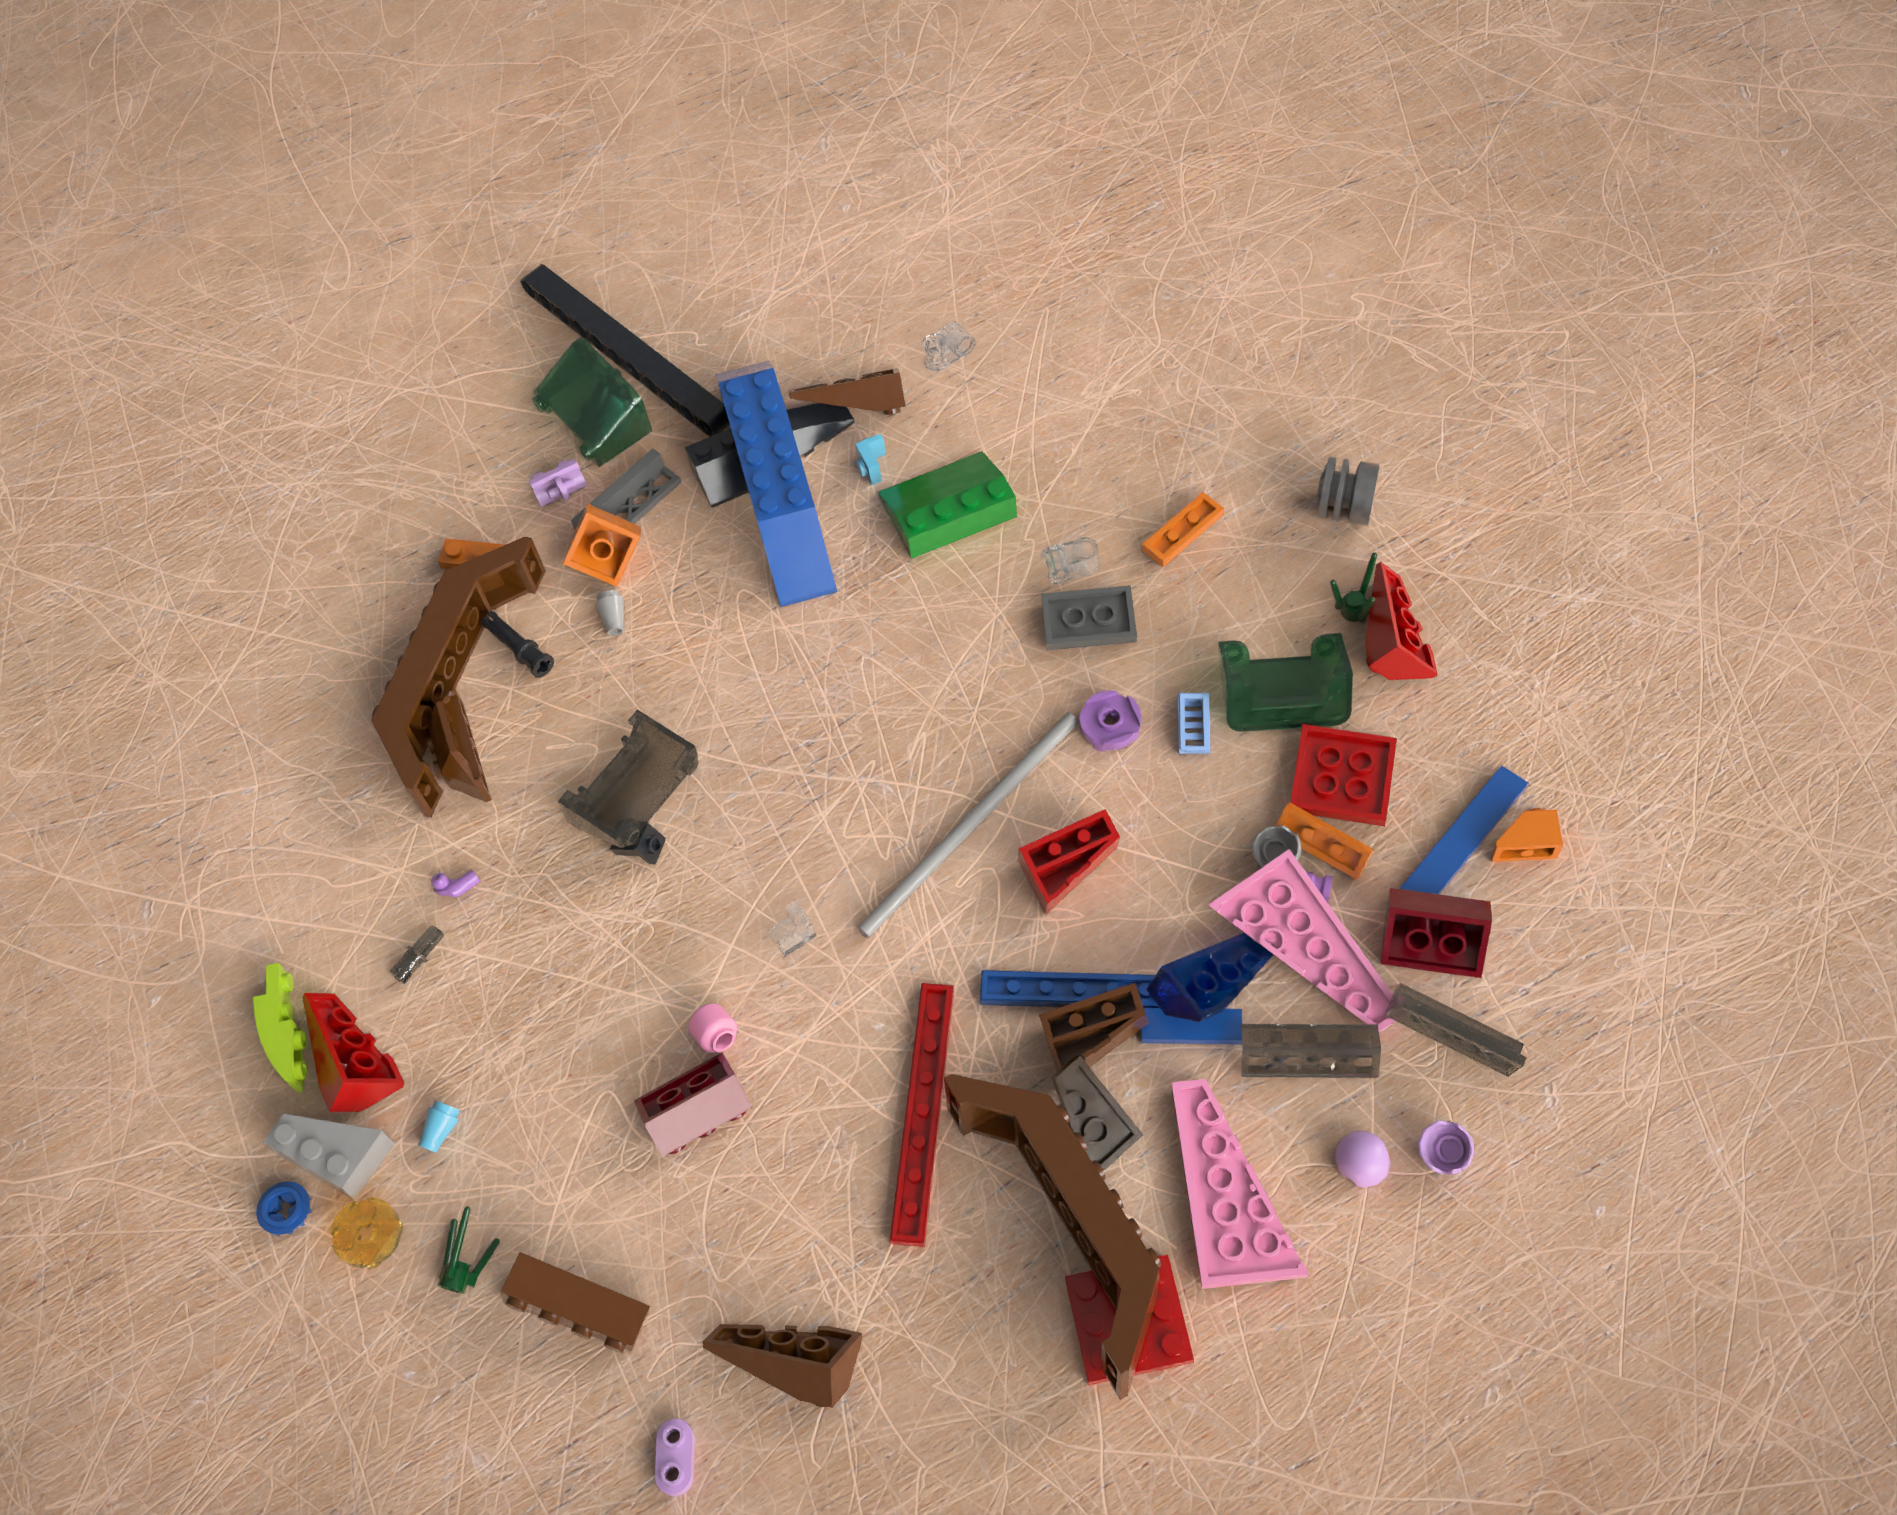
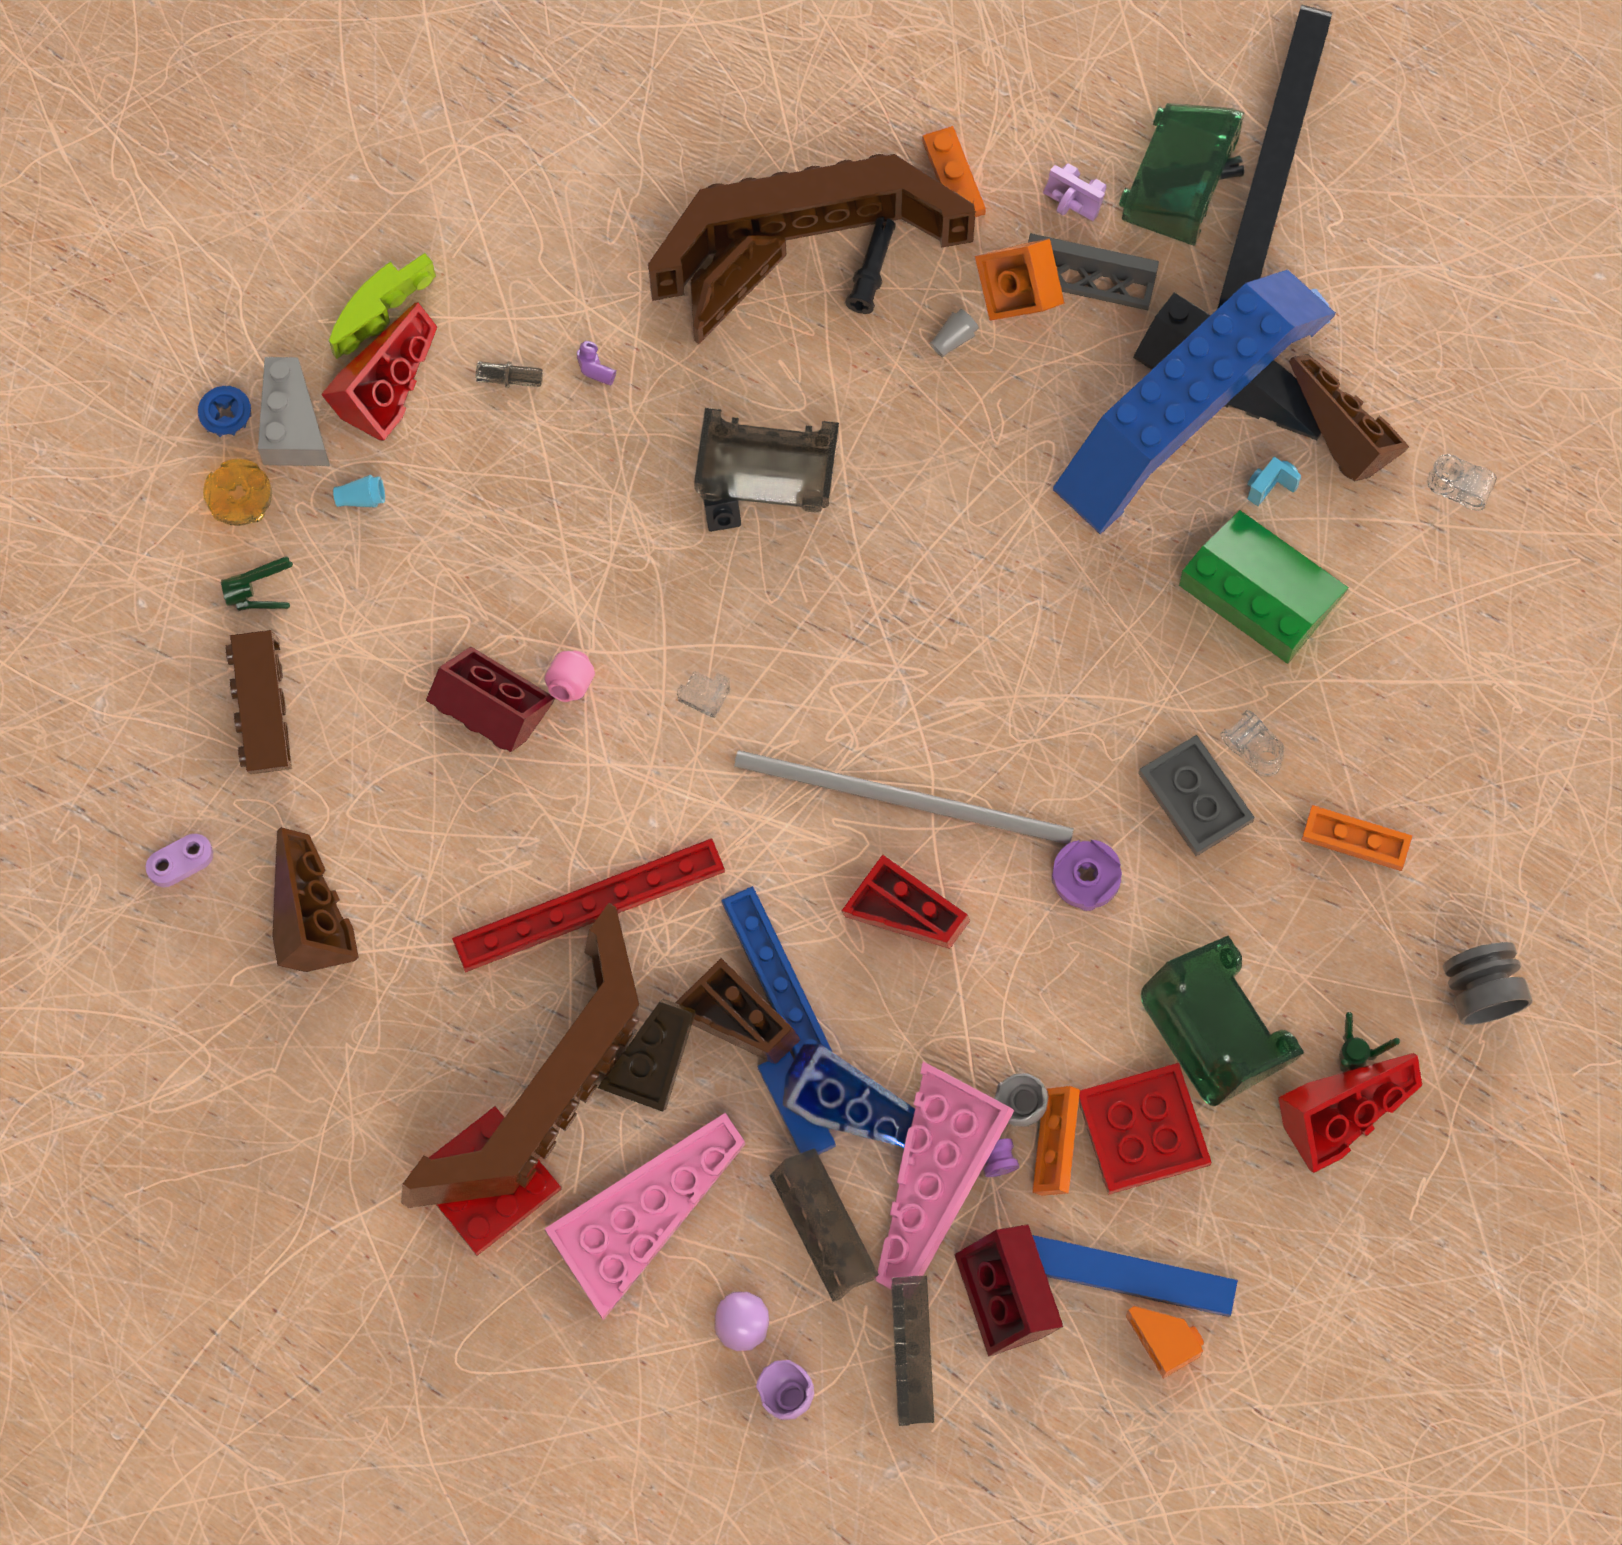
camera: 55 degrees right, 10 degrees up
(1193, 700) = (1120, 946): light blue slope -> none

